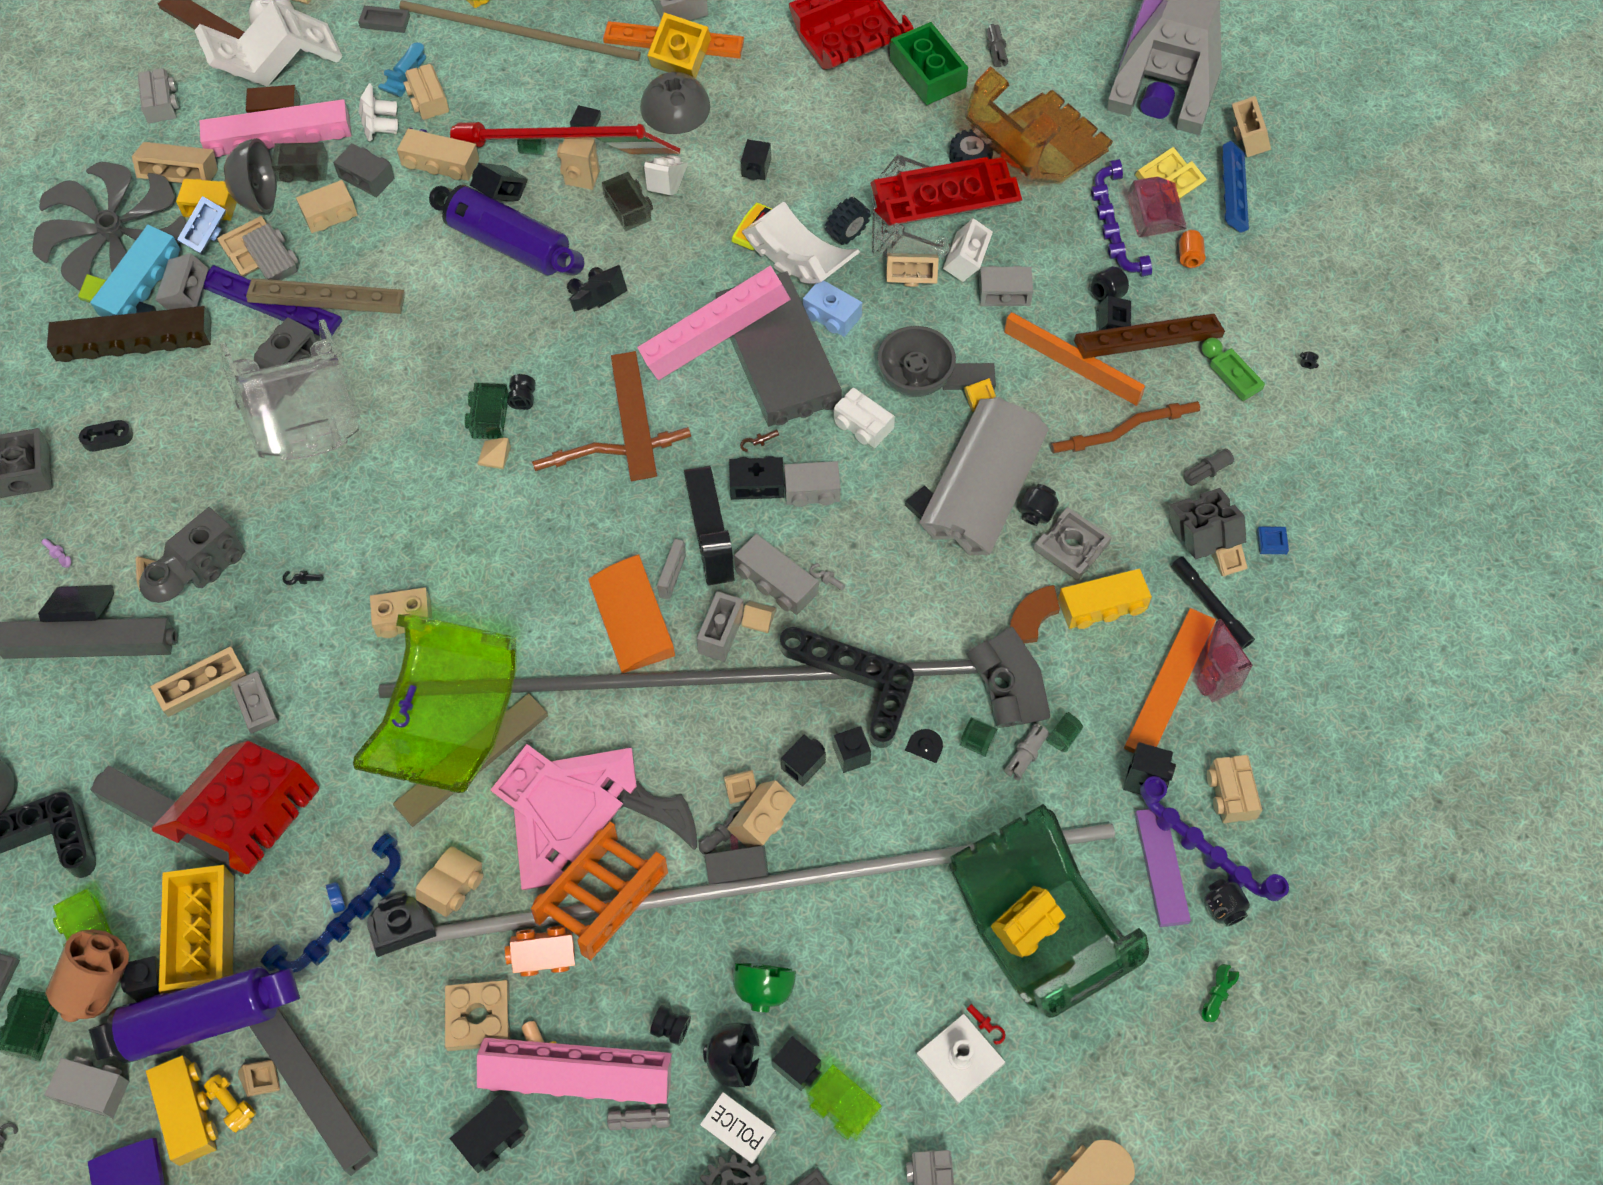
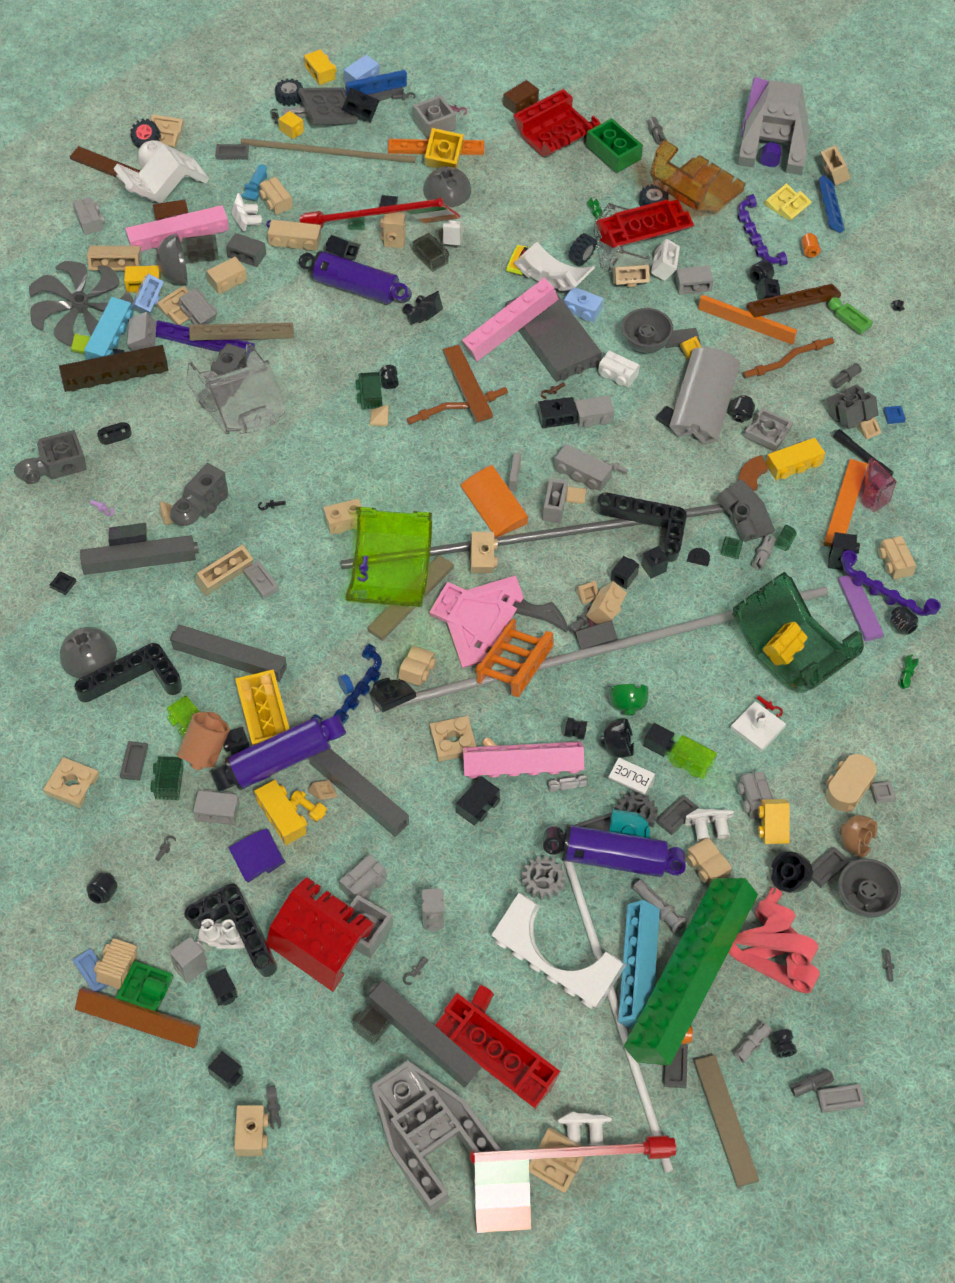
camera: 10 degrees left, 5 degrees down
(238, 799) = (275, 631): red slope -> none
(541, 951) = (492, 695): brick -> none
(592, 699) = (482, 552): none -> tan brick
(712, 537) = (540, 452): black beam -> none
(756, 160) = (511, 217): black brick -> none
(882, 155) = (594, 205): none -> green piece
(1155, 207) = (782, 221): clear pink slope -> none

